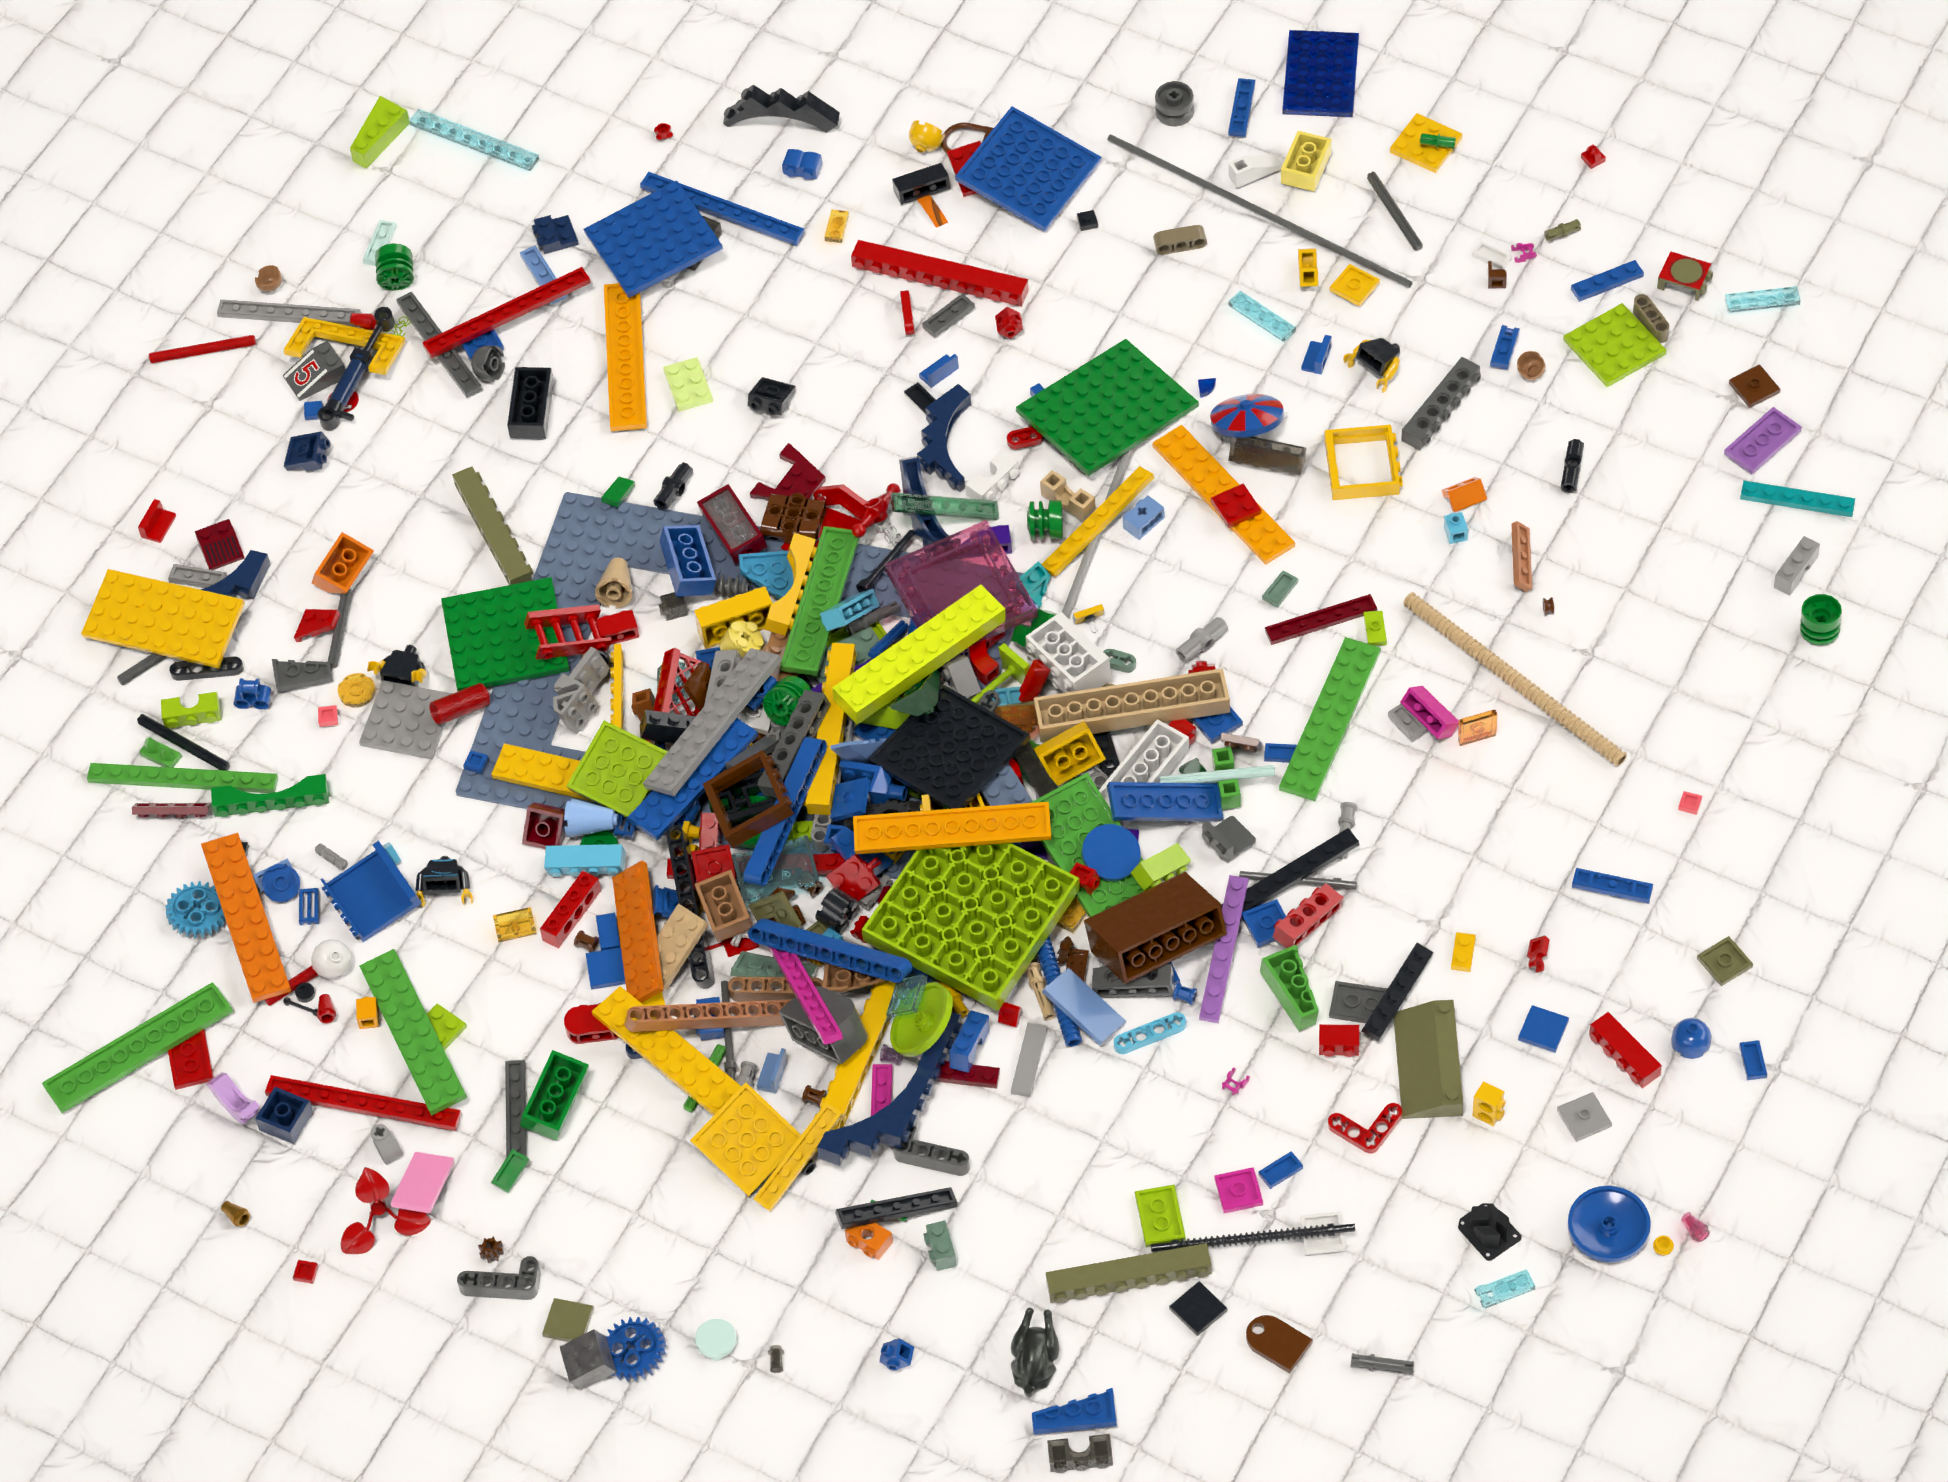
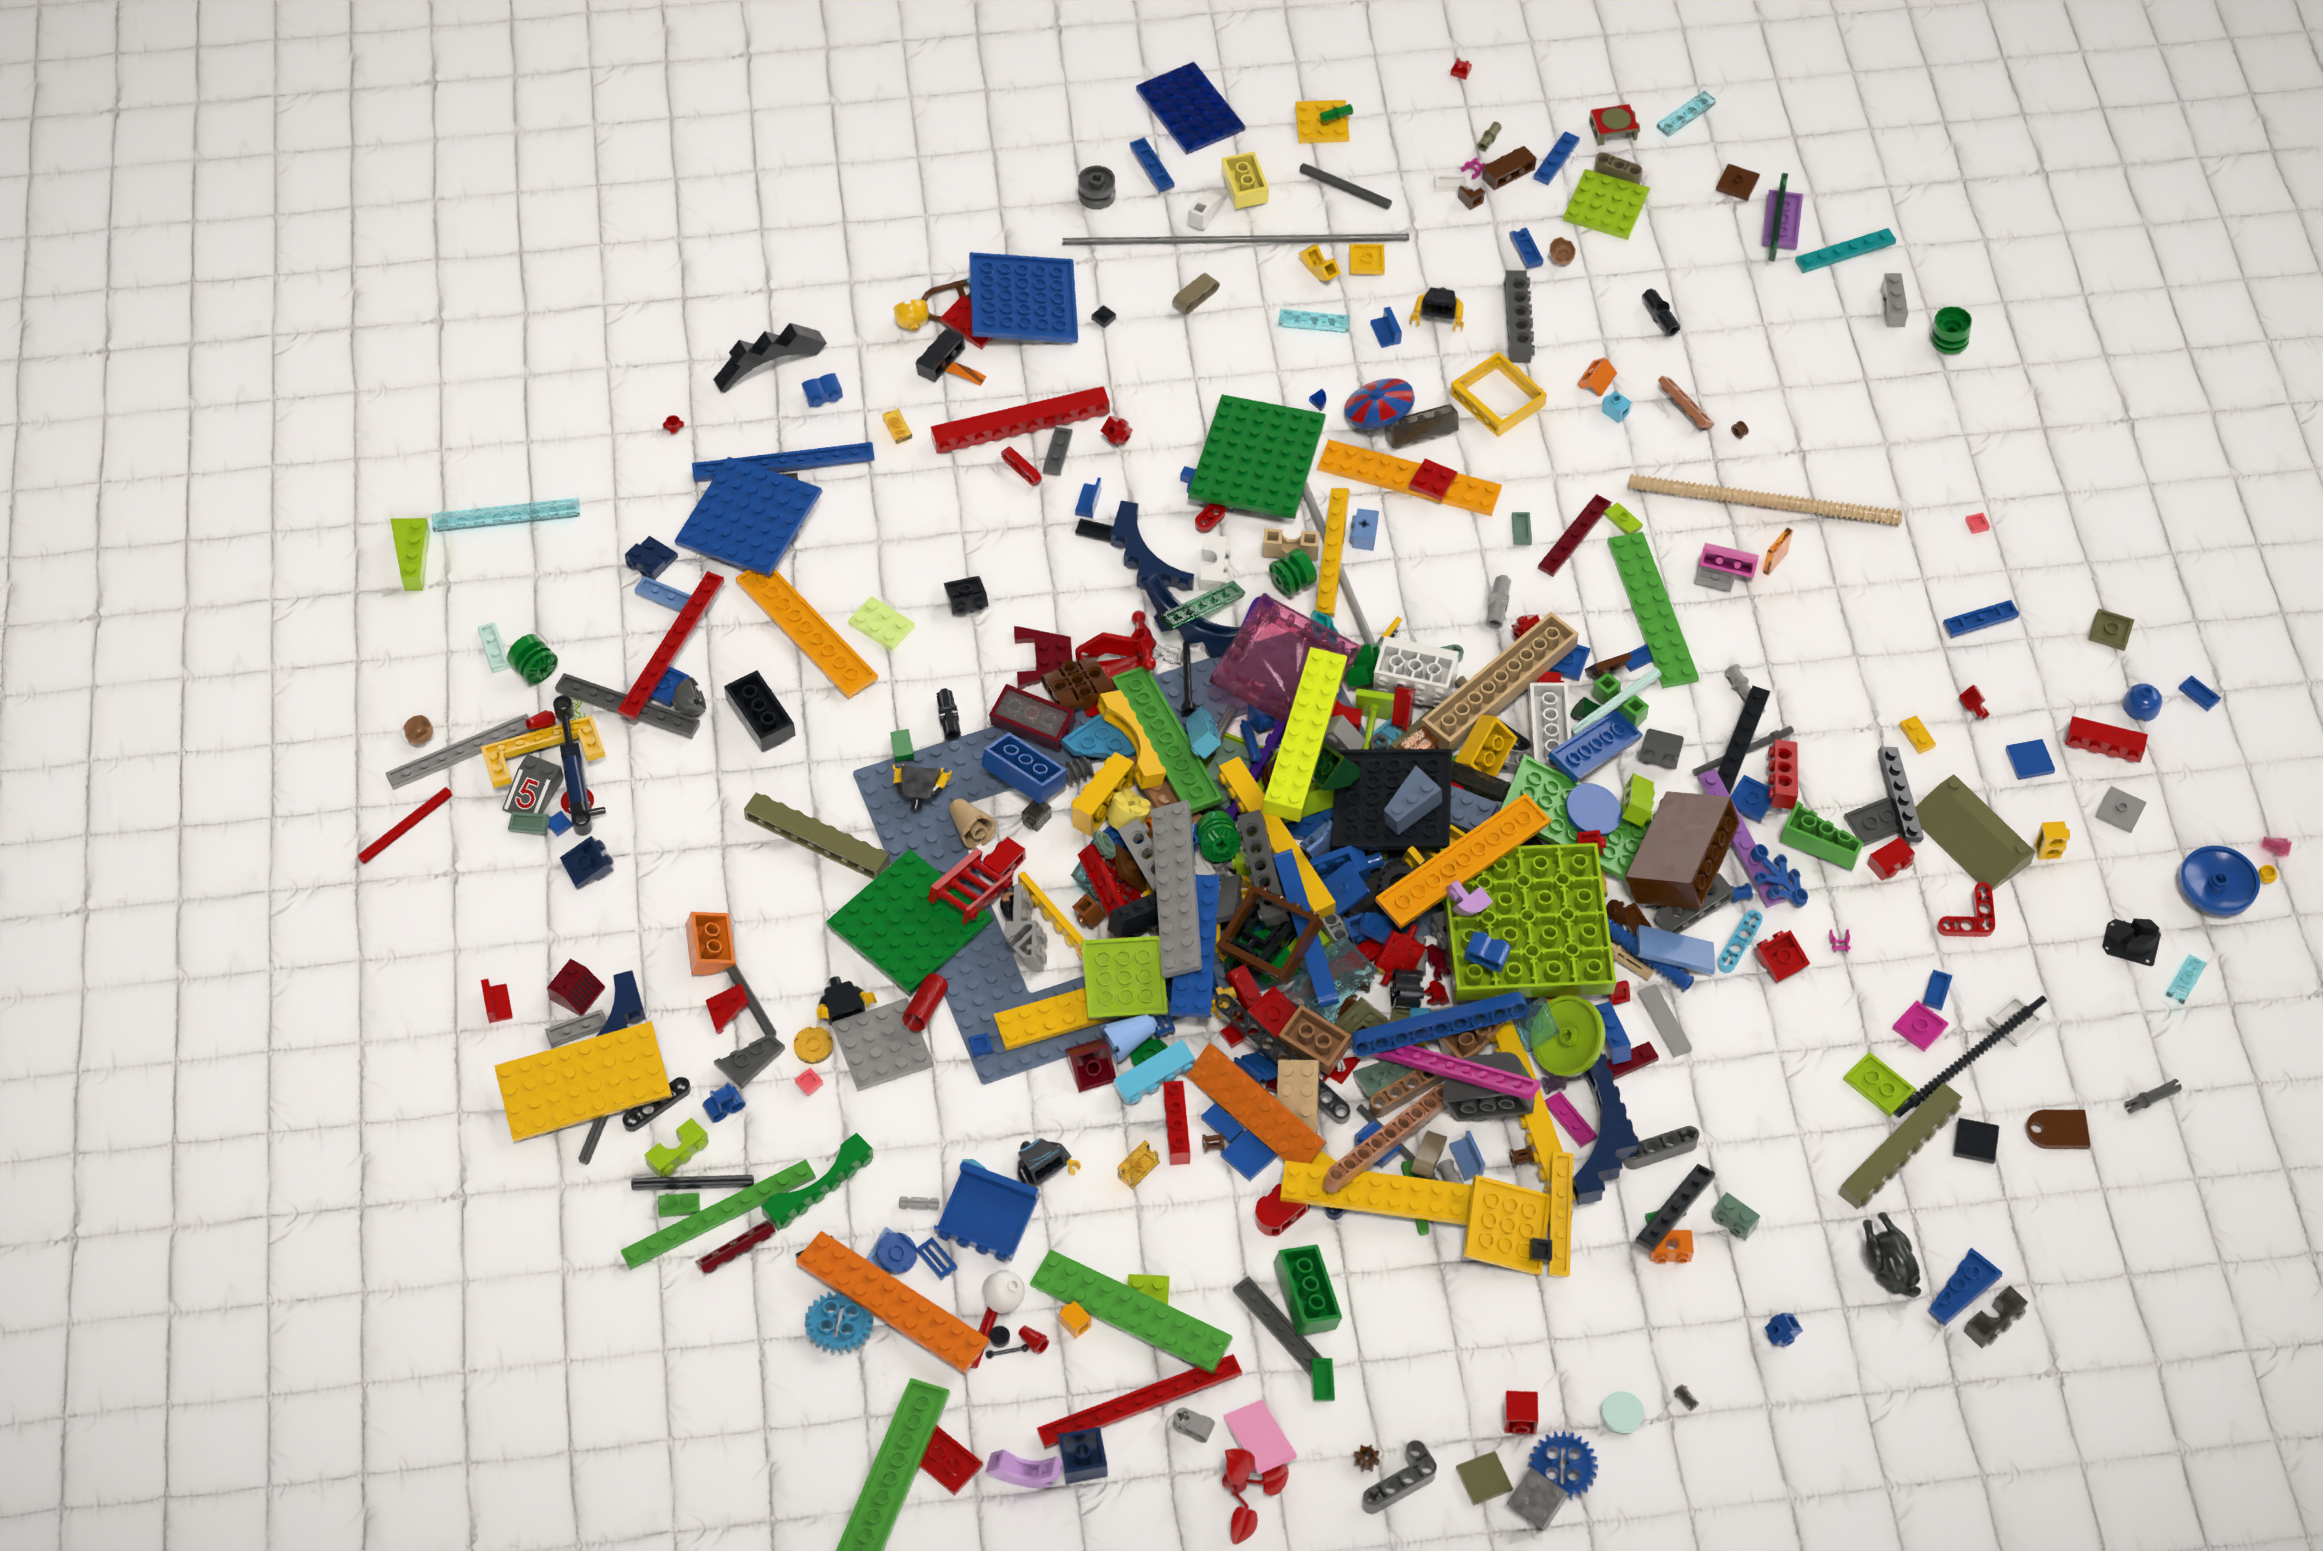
camera: 40 degrees left, 0 degrees up
(291, 397) = (528, 822): none -> sand green tile
(600, 529) = (919, 784): none -> black torso
(634, 1288) = (1521, 1412): none -> red head
(693, 653) = (1104, 844): none -> sand green gear
(740, 1049) = (1428, 1154): none -> dark tan beam
(758, 1174) = (1540, 1249): none -> black plate
(908, 912) = (1487, 951): none -> blue brick
(924, 865) = (1467, 903): none -> lavender brick
(953, 757) = (1412, 801): none -> sand blue wedge
(1170, 1064) = (1781, 955): none -> red plate
(1225, 1000) = (1779, 877): none -> blue plant
(1553, 267) = (1509, 168): none -> reddish brown brick
(1753, 434) = (1778, 217): none -> clear green tile

